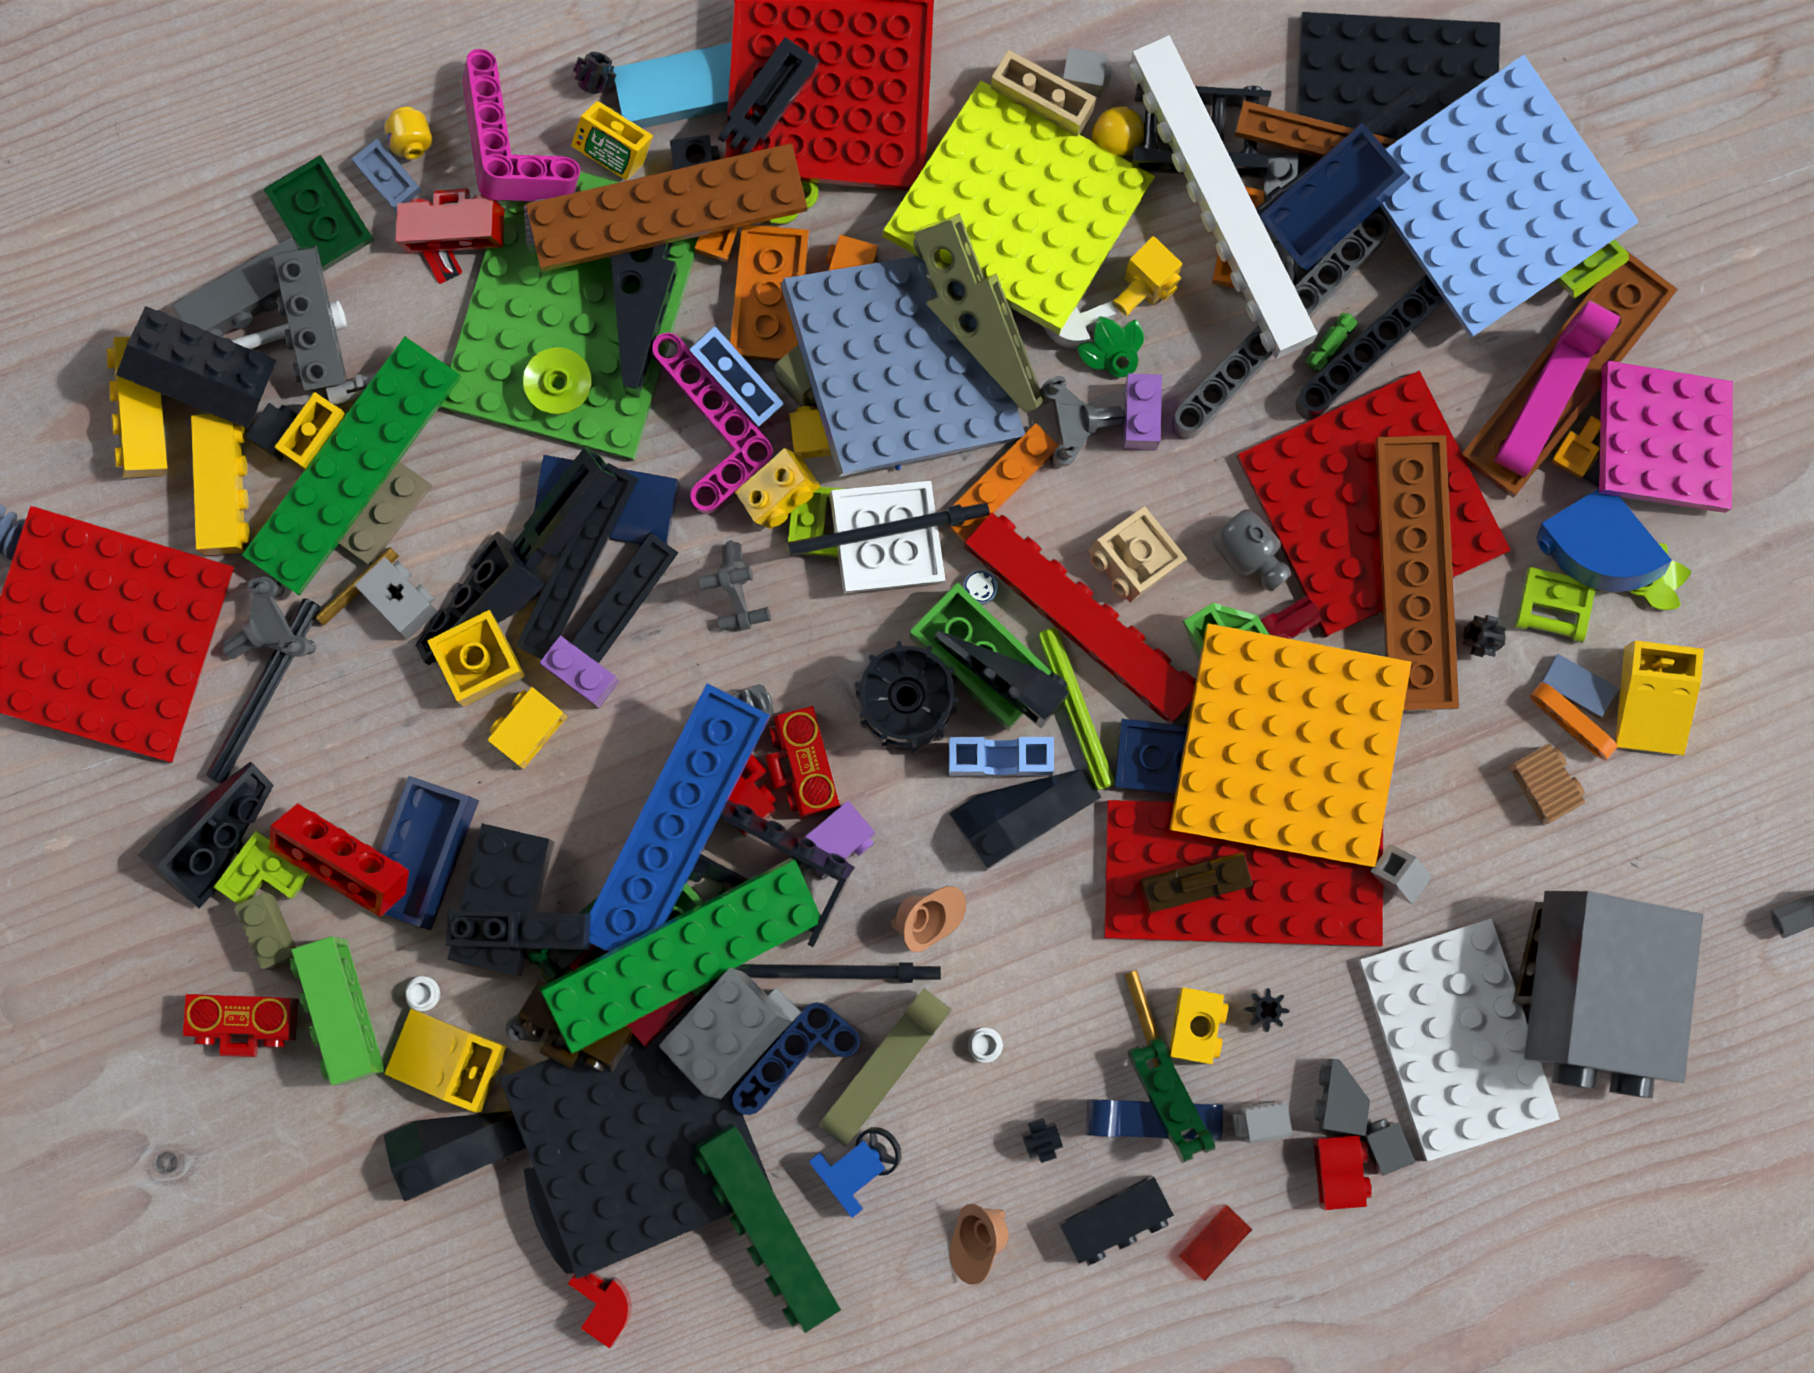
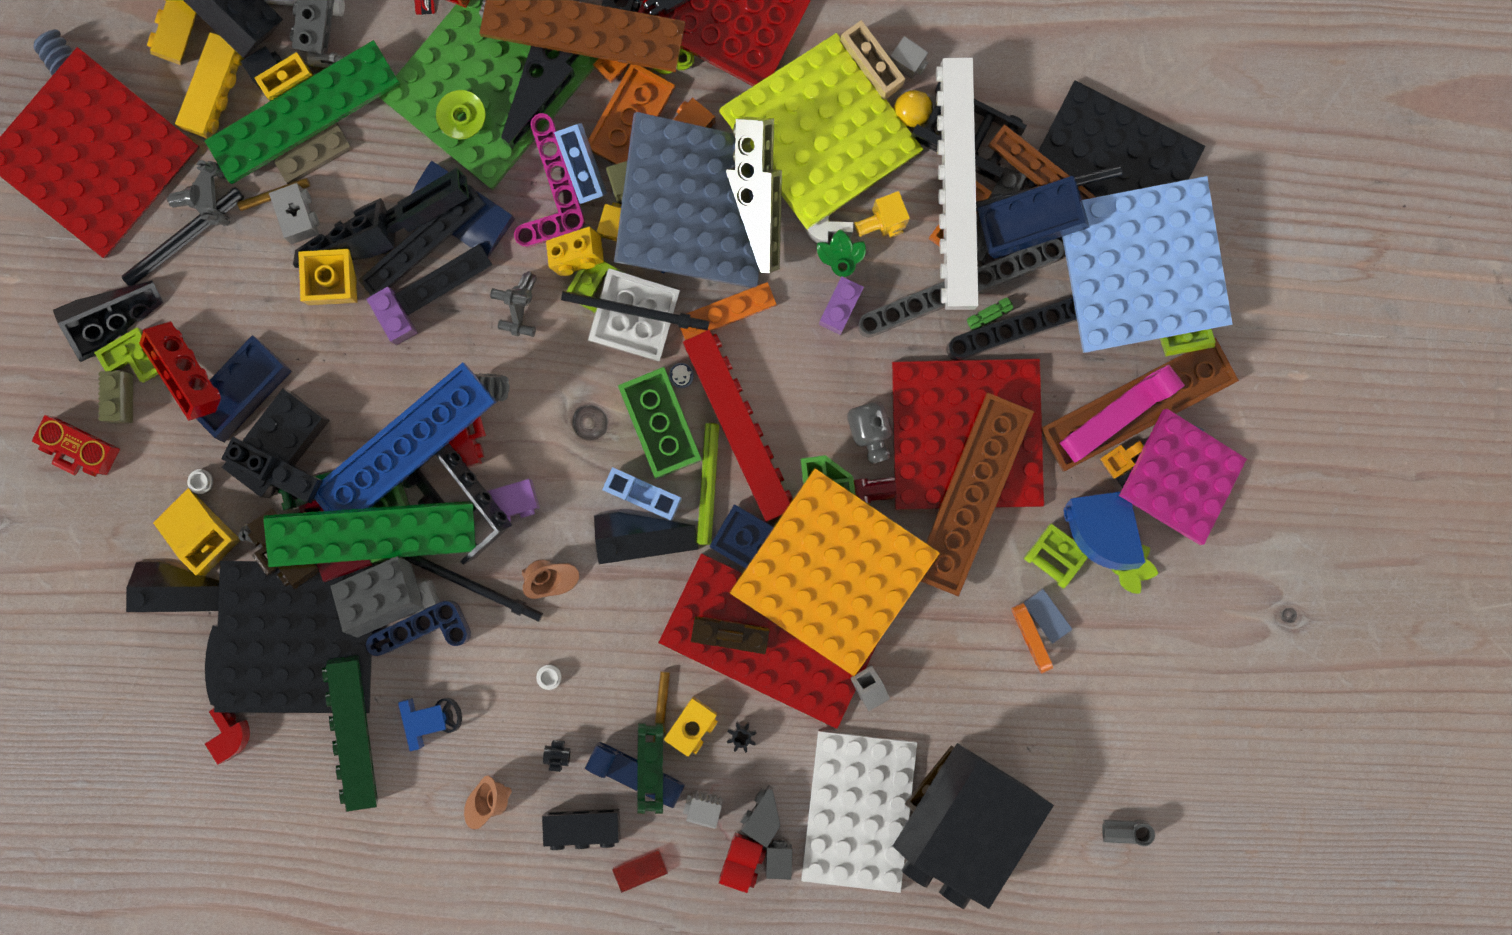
camera: 25 degrees right, 5 degrees up
(337, 1011) = (137, 469): bright green brick -> none
(526, 727) = (342, 337): yellow brick -> none
(812, 778) = (514, 452): red piece -> none
(885, 1067) = (476, 662): olive beam -> none
(902, 670) = (576, 424): black piece -> none
(1020, 684) = (672, 454): black wedge -> none
(1075, 420) = (794, 291): dark grey axle -> none
(1136, 555) = (793, 399): tan plate -> none
(1484, 636) = (999, 555): black gear -> none
(1547, 783) = (995, 671): medium nougat brick -> none
(1658, 696) = (1095, 647): yellow slope -> none

